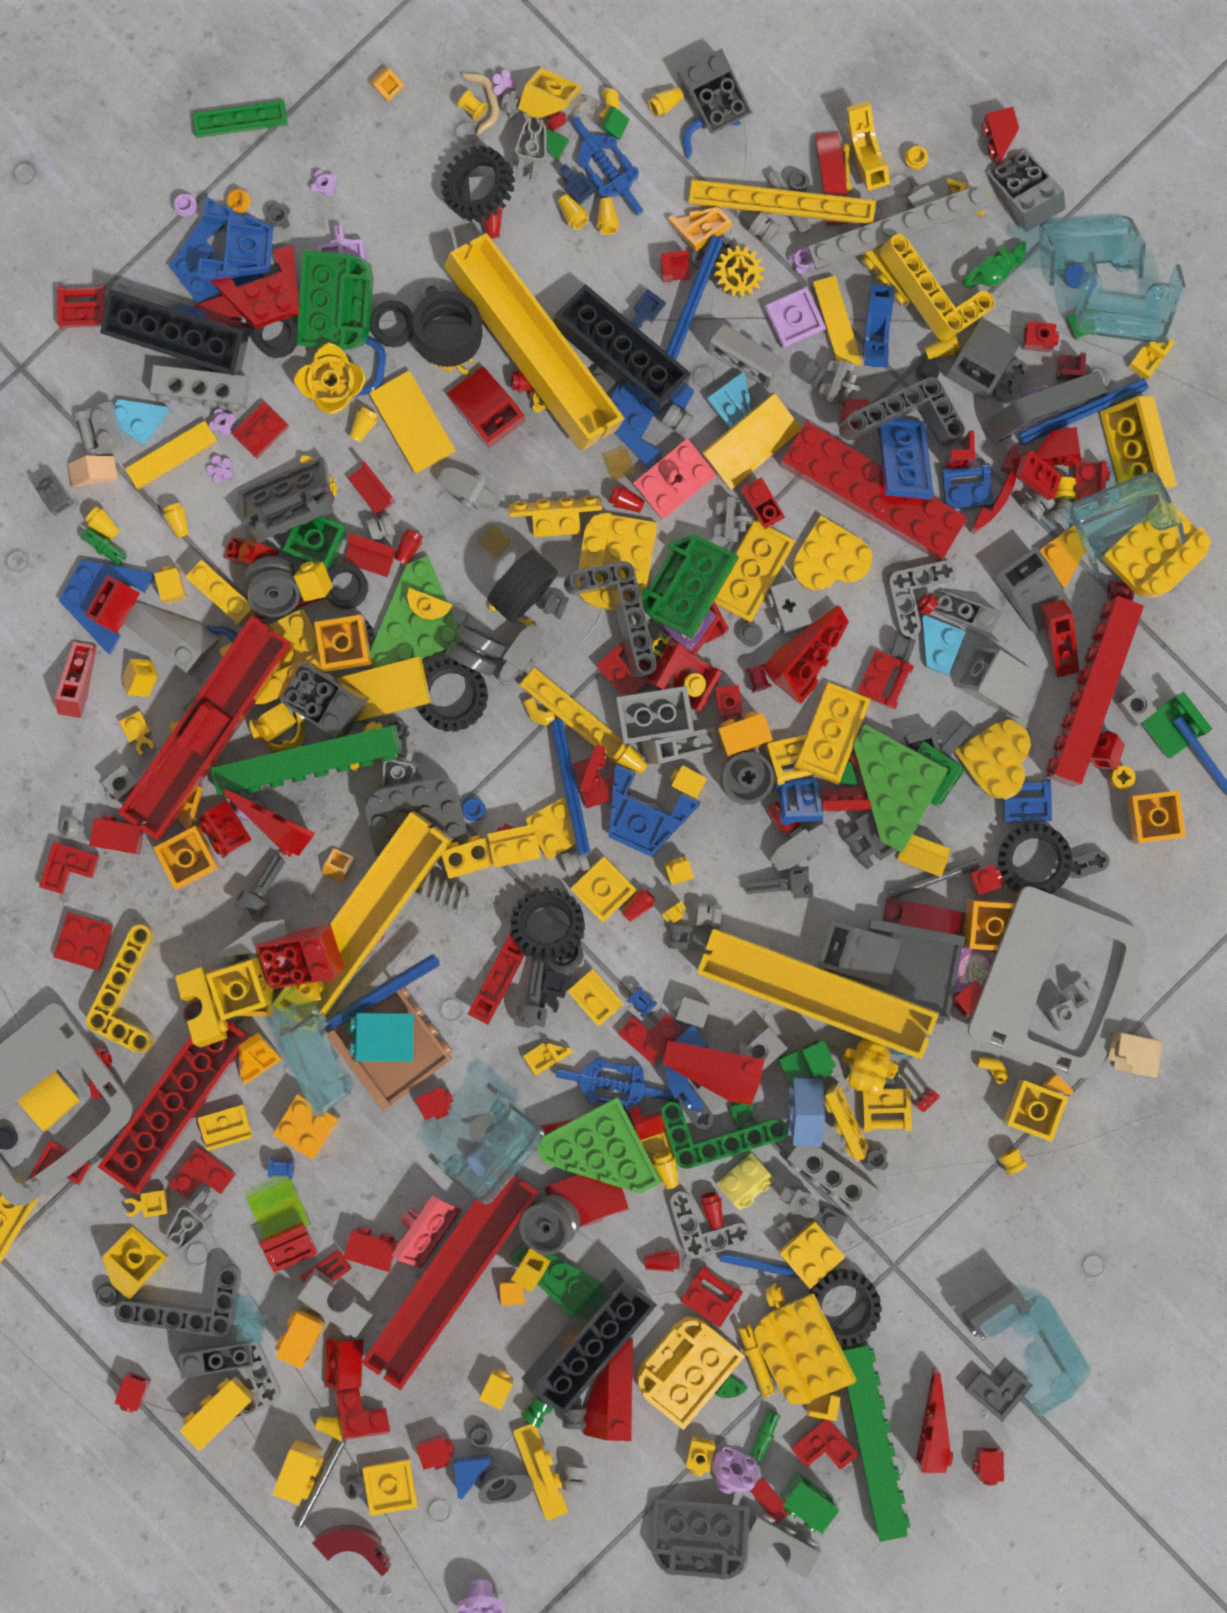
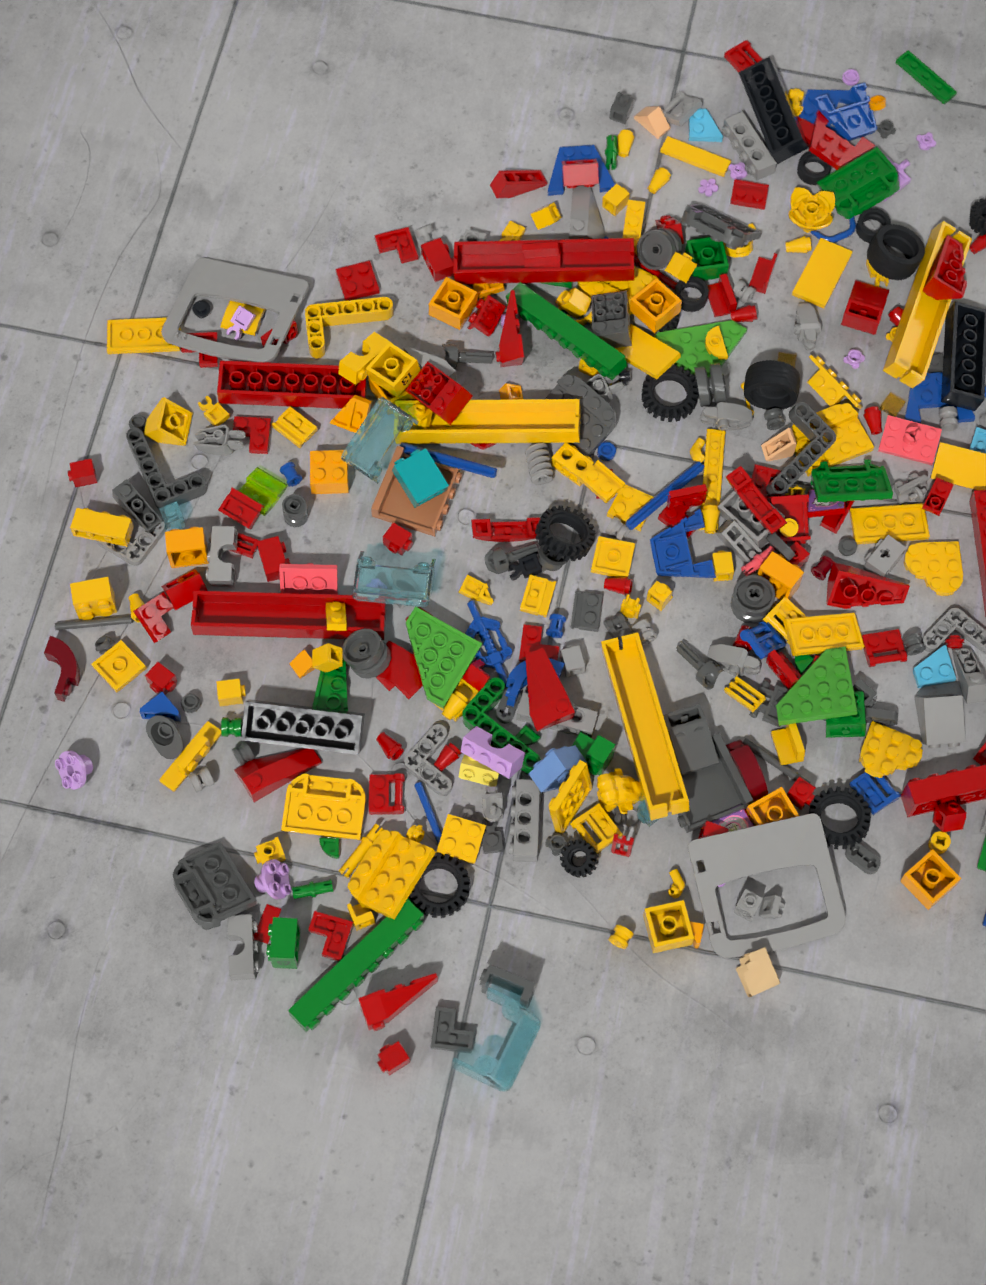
camera: 55 degrees right, 20 degrees down
(57, 1107) = (242, 320): none -> lavender plate
(168, 285) = (796, 95): none -> yellow bar
(330, 1192) = (295, 510): none -> dark grey wheel
(488, 1231) = (336, 616): none -> yellow plate
(515, 297) = (947, 272): none -> red wedge
(539, 459) = (856, 355): none -> lavender plate
(591, 624) = (780, 446): none -> light nougat slope
(644, 957) = (586, 611): none -> dark grey plate
(652, 705) = (755, 501): none -> red slope
(711, 742) = (757, 561): none -> coral pin
(714, 712) = (780, 546): none -> dark grey beam
(763, 1163) = (502, 760): none -> lavender arch
(824, 864) = (734, 685): none -> yellow tile
(908, 1136) = (568, 853): none -> black tyre

